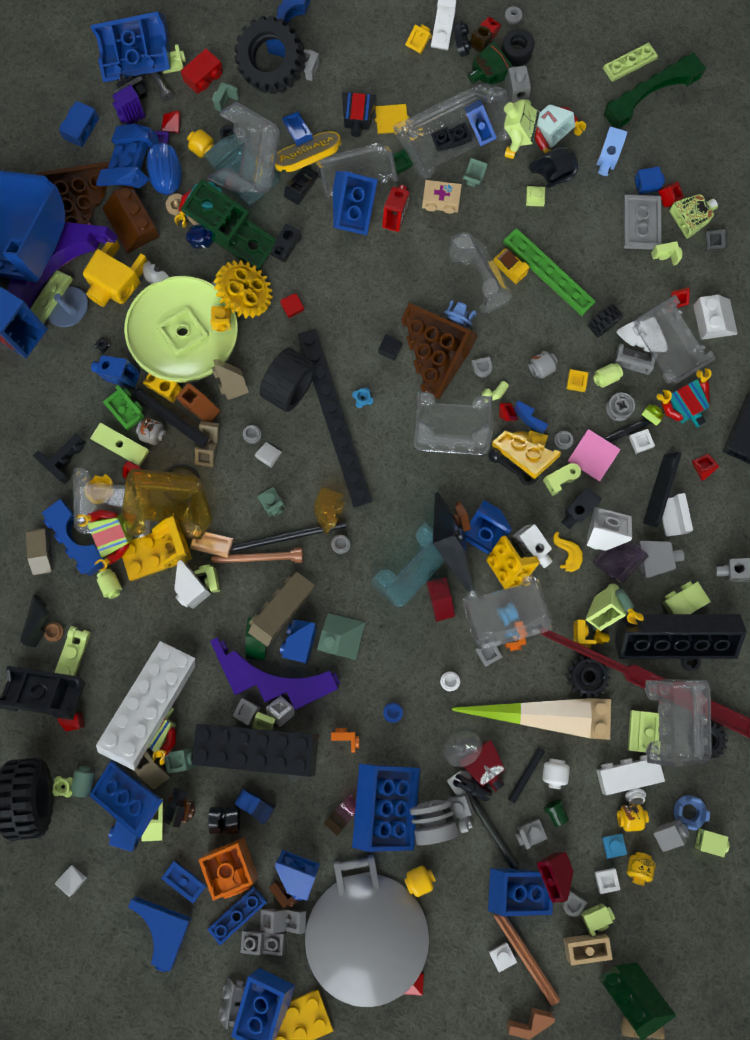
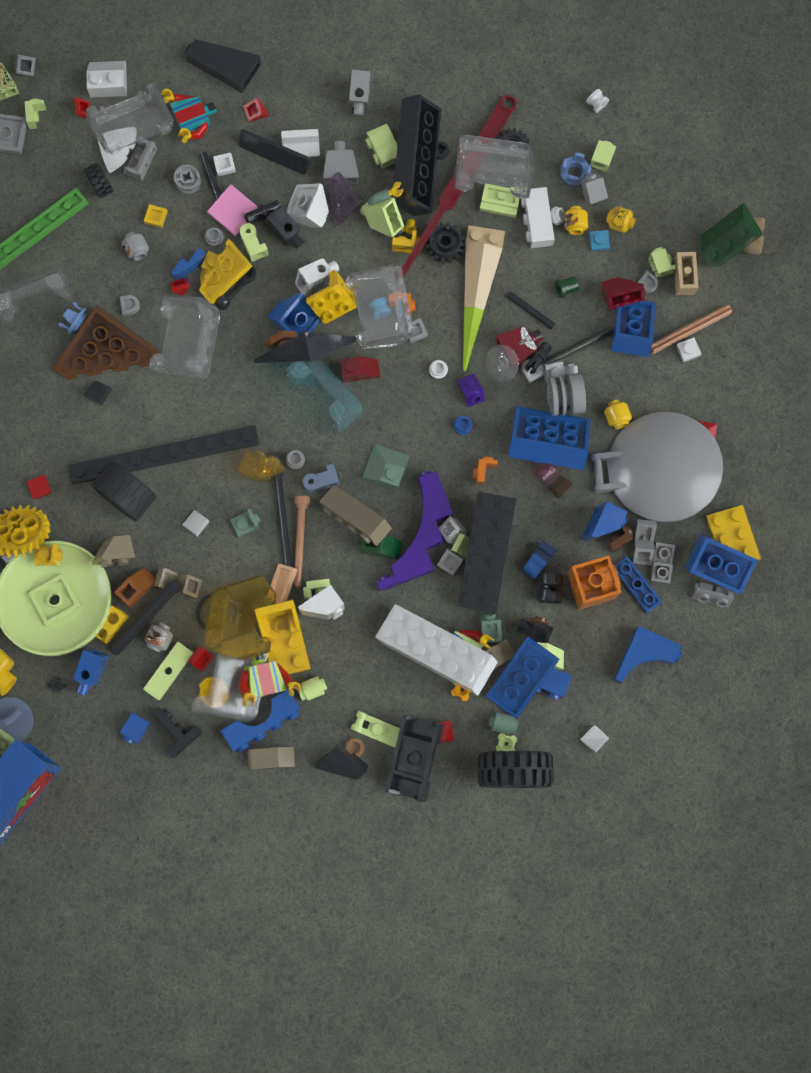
camera: 90 degrees left, 0 degrees up
(62, 419) = (134, 729): none -> blue brick
(123, 408) = (130, 663): bright green bracket -> none
(184, 881) = (603, 631): blue plate -> none
(252, 434) = (172, 537): light grey plate -> none
(299, 642) = (388, 503): blue slope -> none
(317, 564) = (322, 480): none -> sand blue leg
(361, 402) = (142, 421): dark azure plate -> none
(431, 718) = (471, 390): none -> dark purple bracket
(498, 393) = (158, 292): yellowish green arm -> none
(511, 265) = (26, 264): yellow leg -> none
(530, 834) = (583, 312): light grey bracket -> none
(538, 1021) = (746, 326): nougat slope -> none
(556, 773) = (531, 282): white head -> none
(575, 554) = (326, 241): yellow piece -> none
(595, 484) = (261, 212): none -> black pin
(607, 880) = (629, 250): white plate -> none
(608, 375) = (153, 186): yellowish green brick -> none
(653, 414) = (198, 149): lime plate -> none

